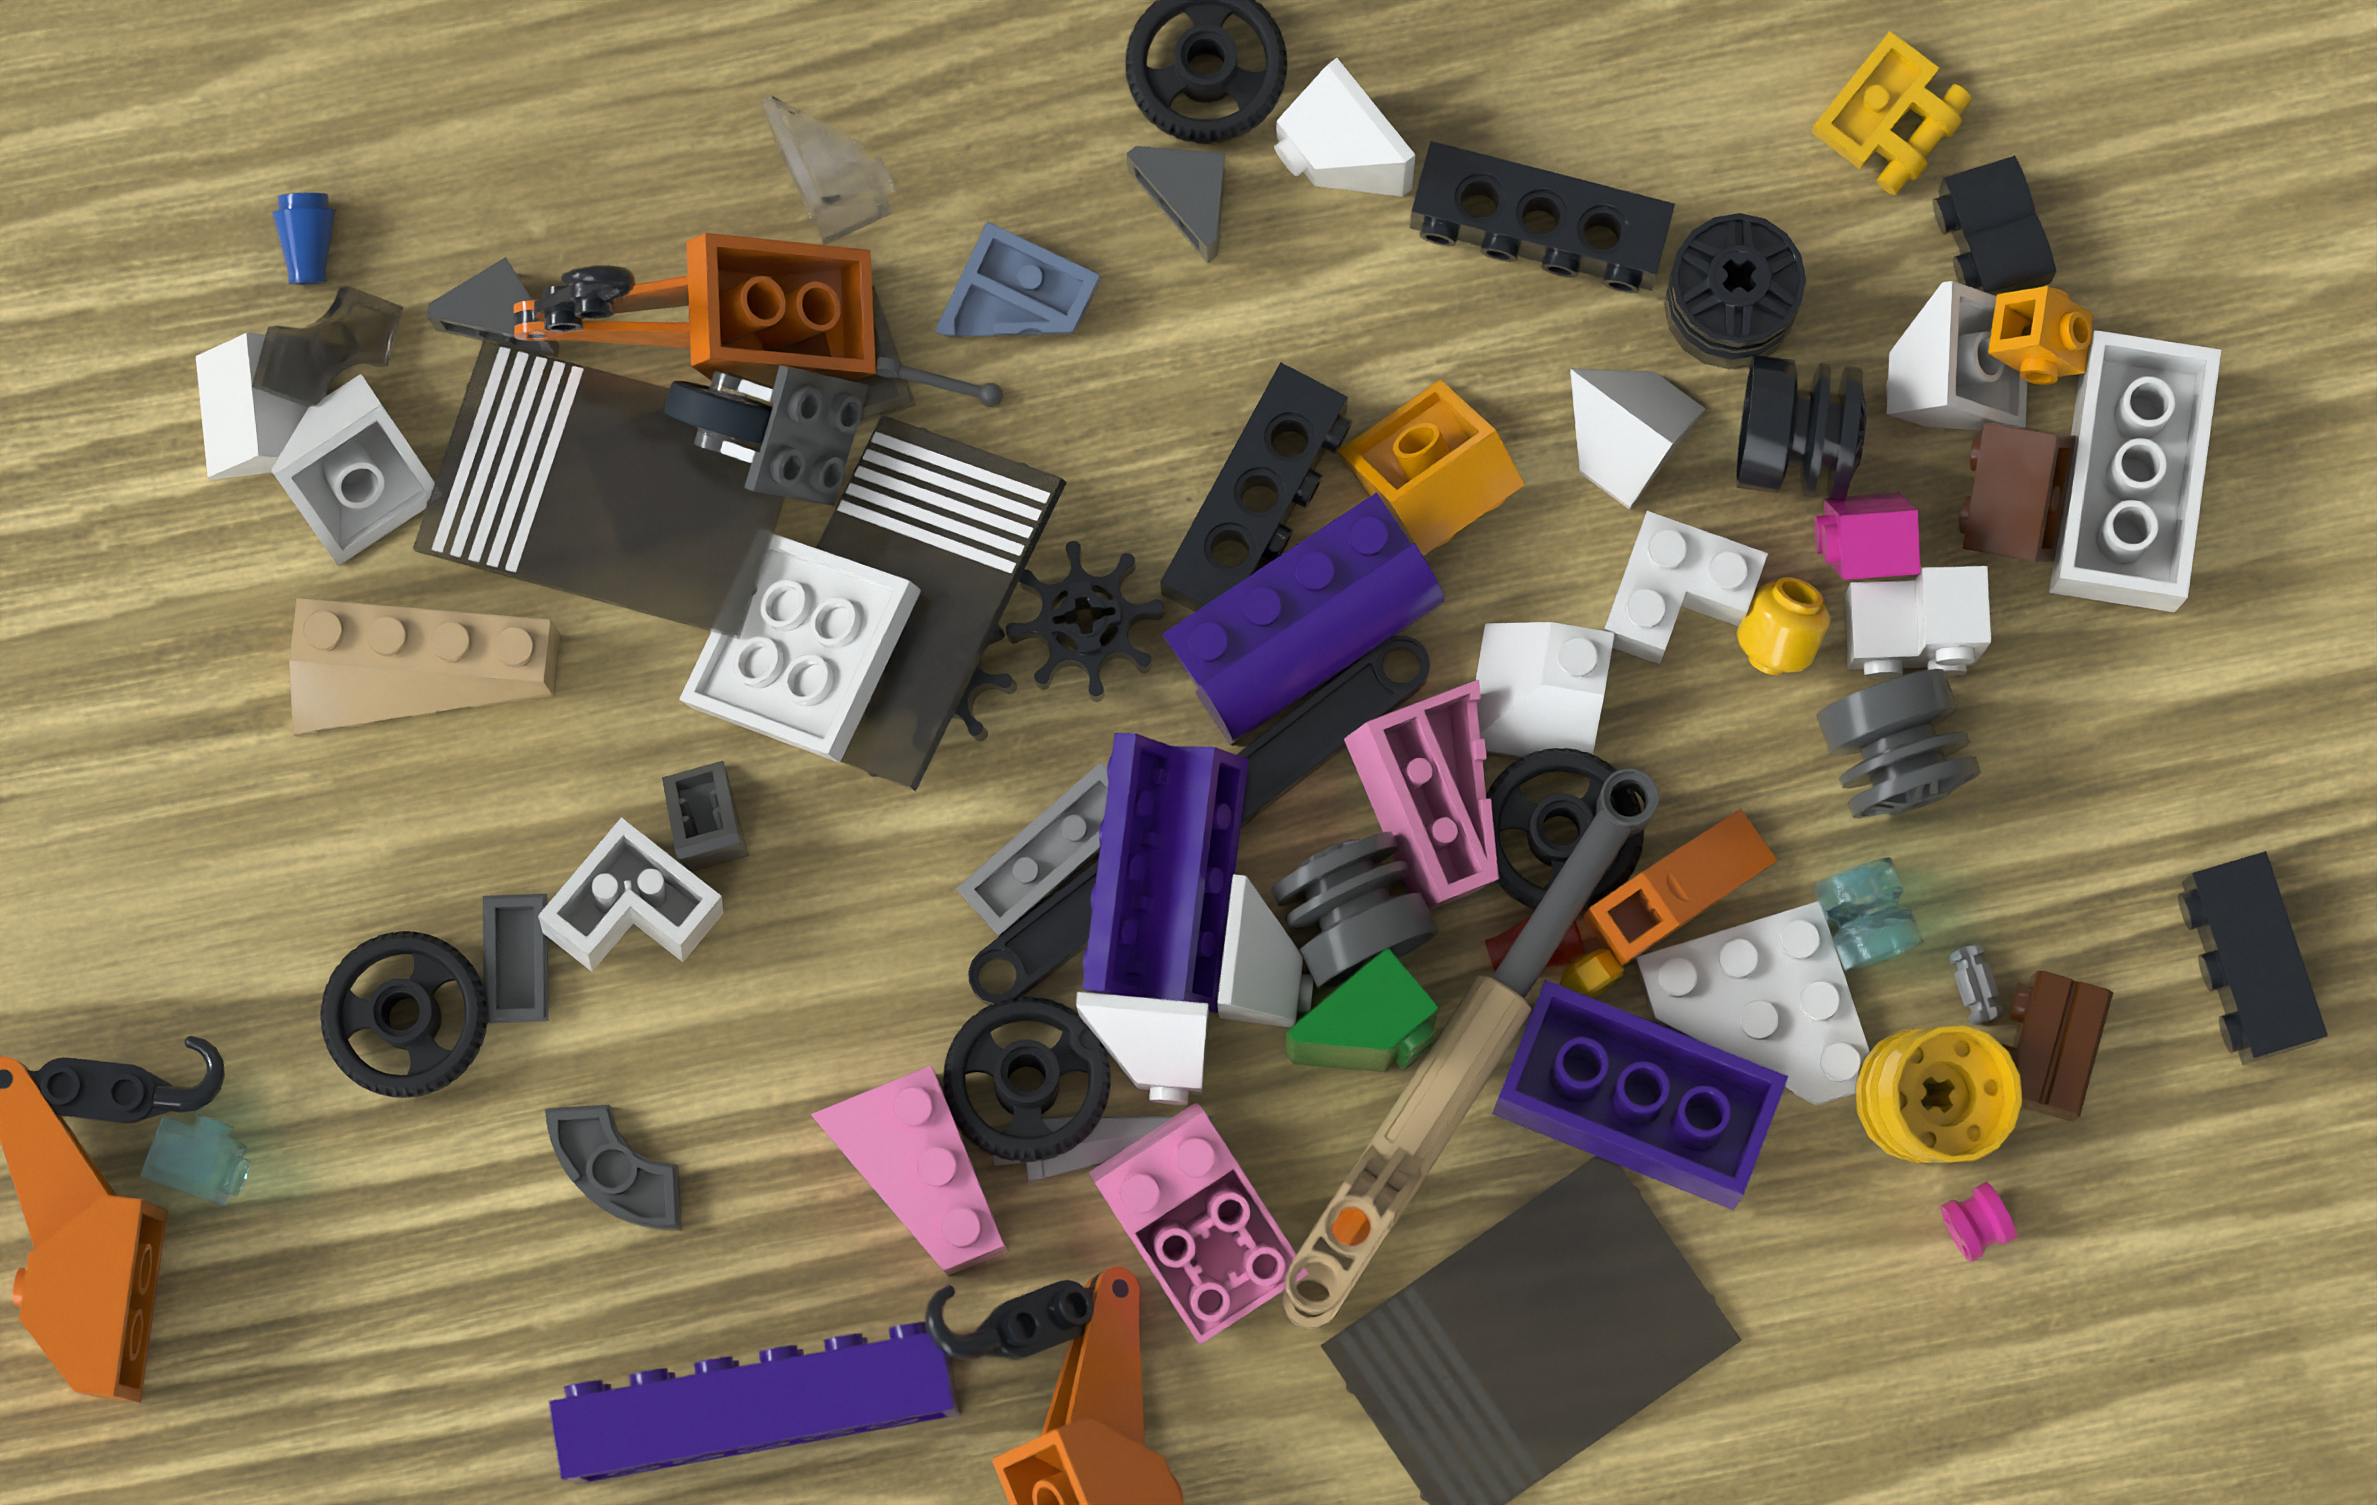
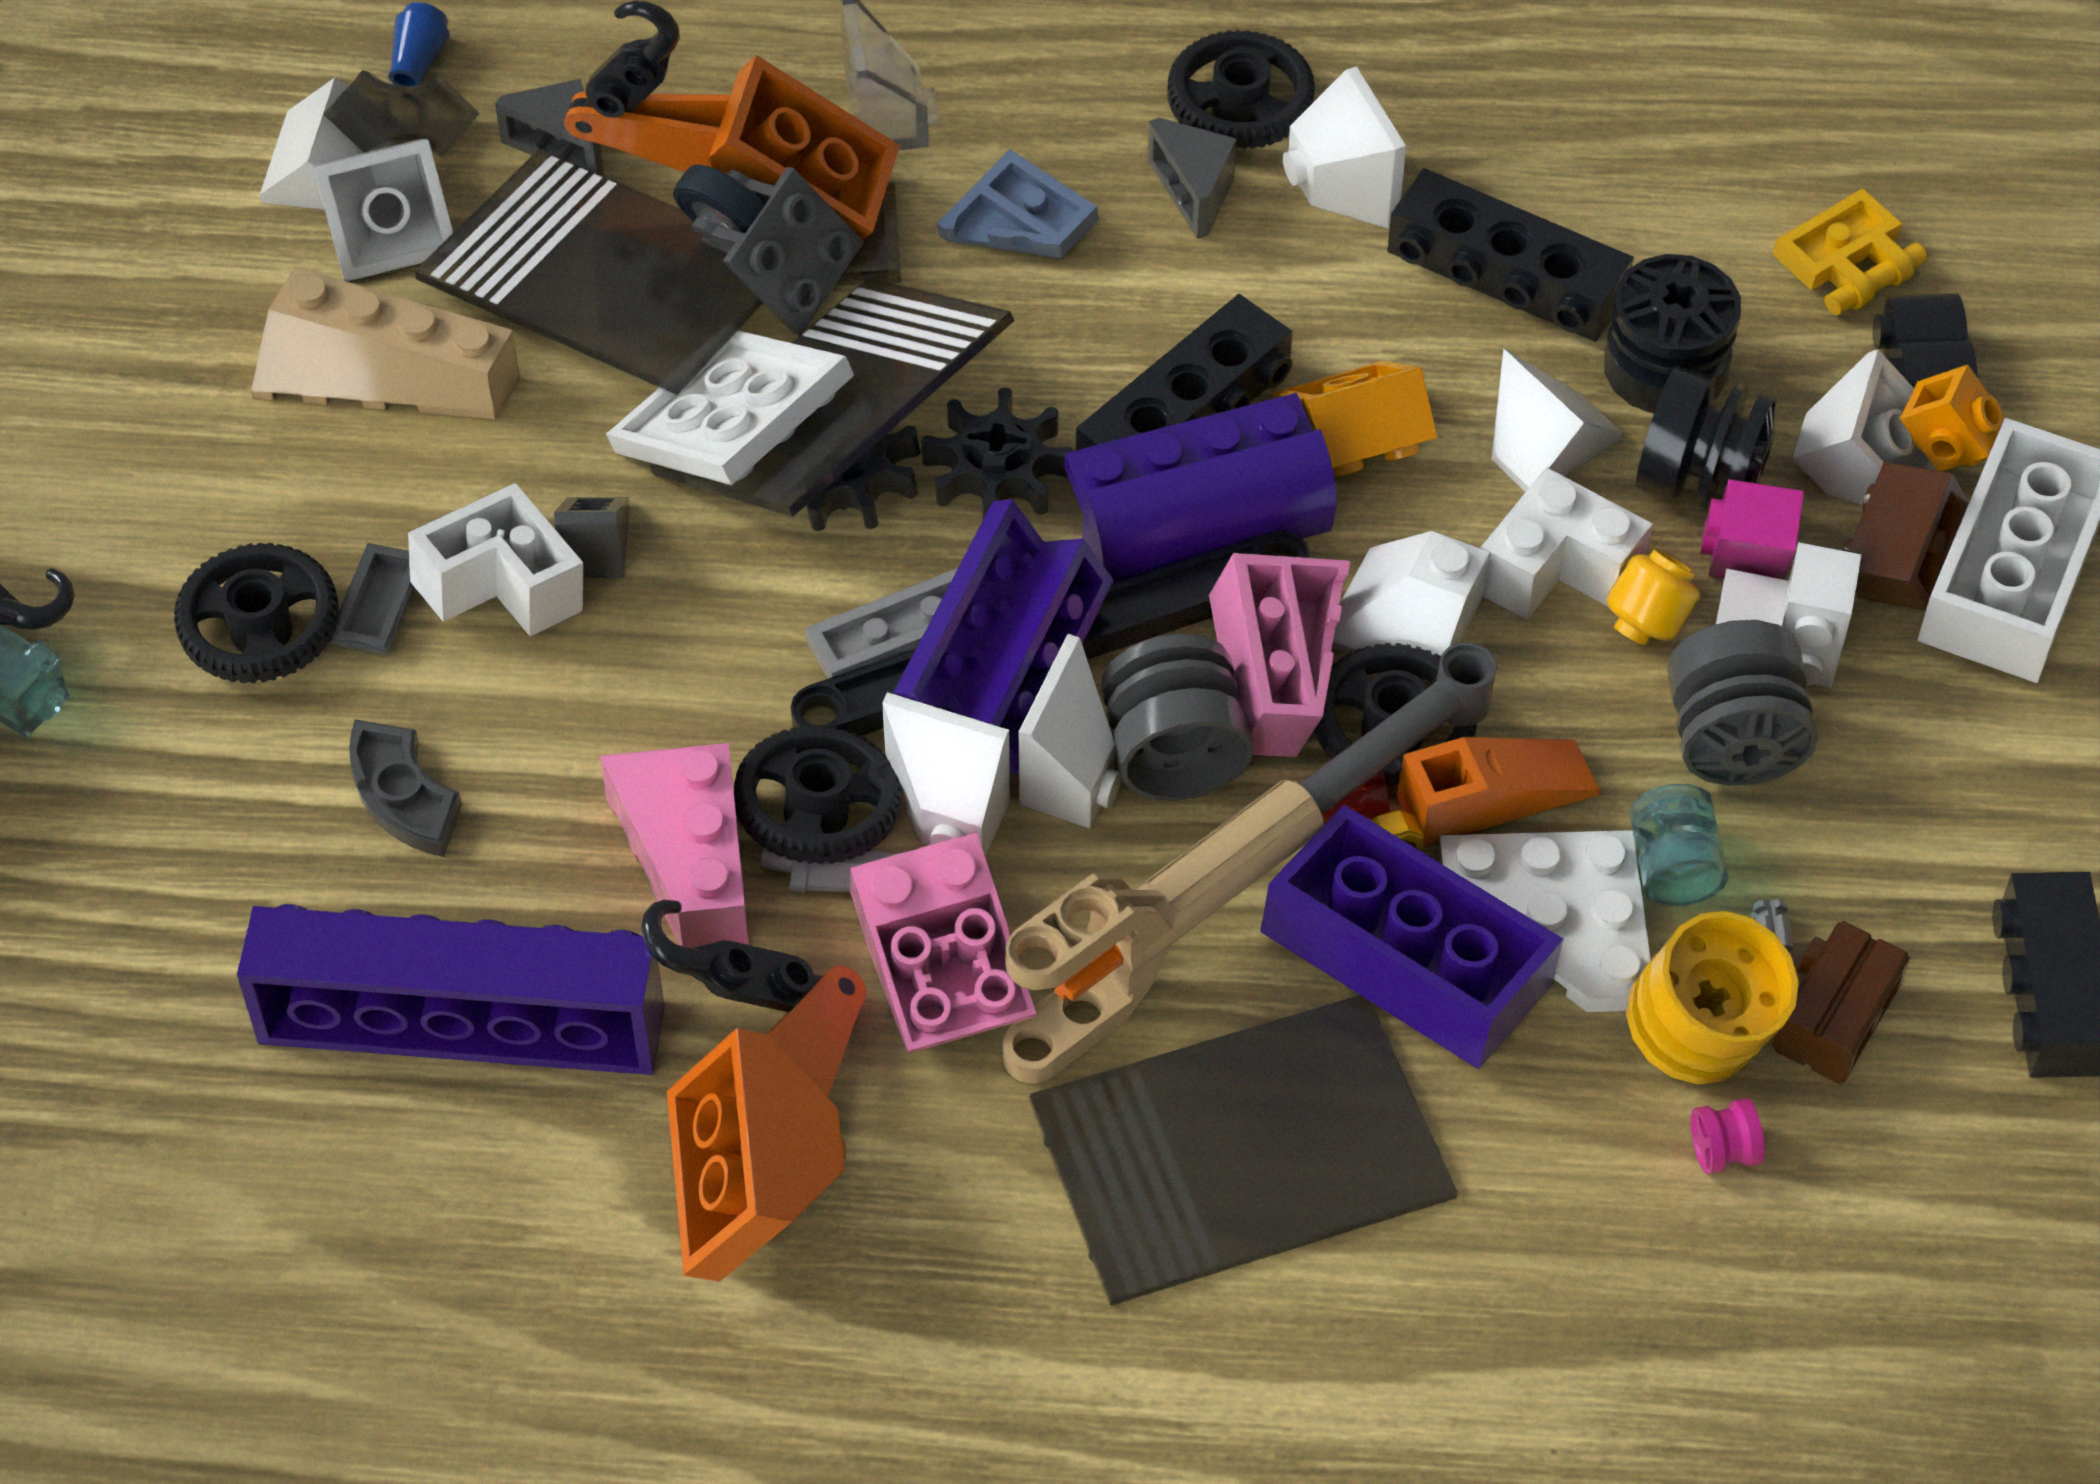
camera: 10 degrees right, 25 degrees down
(988, 394) = (886, 235): dark grey hinge -> none
(1367, 1022) = (1150, 787): green slope -> none

